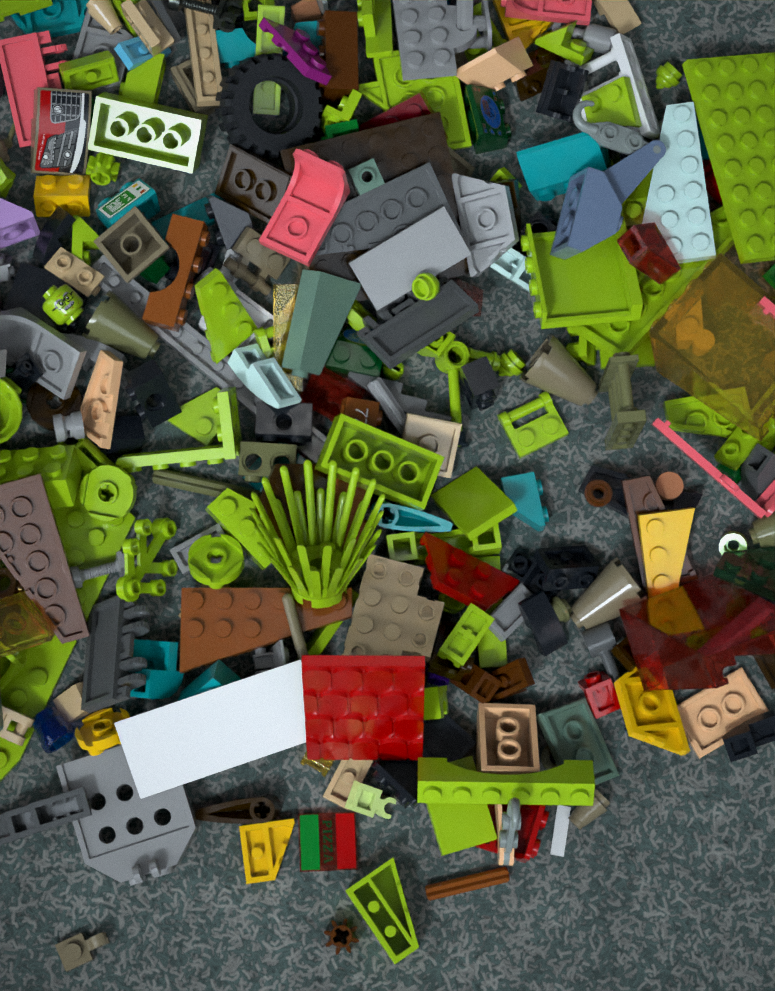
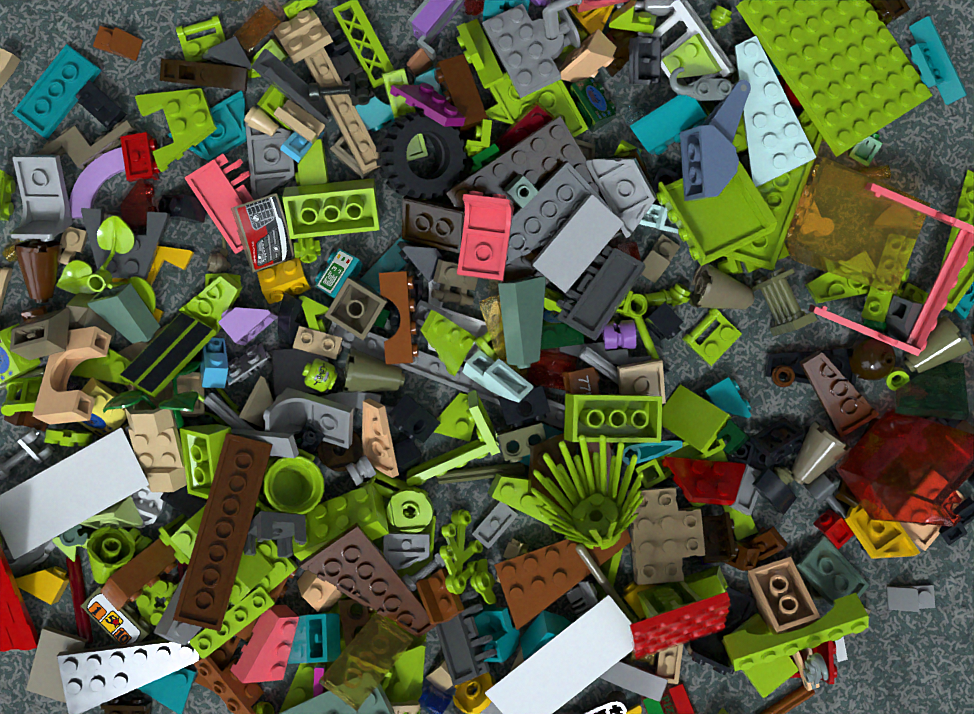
camera: 15 degrees left, 10 degrees up
(38, 666) = (408, 663): none -> lime slope
(87, 536) = (406, 548): none -> light grey wing
(89, 71) = (267, 175): lime slope -> none
(101, 605) = (437, 600): none -> dark orange bracket
(162, 607) = (483, 581): none -> lime plate
(220, 573) = (507, 522): lime plate -> none
(297, 782) = (636, 679): none -> light grey slope
(368, 800) = (689, 674): yellowish green plate -> none
(423, 383) = (619, 335): none -> medium lavender wheel
(426, 286) = (598, 263): lime plate -> none
(465, 635) = (726, 530): lime hinge -> none
(501, 316) = (659, 258): none -> dark tan slope
(515, 542) = (734, 435): none -> dark green hinge
(649, 252) = (766, 175): clear red slope -> none
(663, 547) = (849, 402): yellow wing -> none
(664, 807) = (910, 597): none -> light grey slope
(669, 486) = (835, 350): nougat tile -> none
(714, 509) = (872, 359): none -> dark brown cylinder

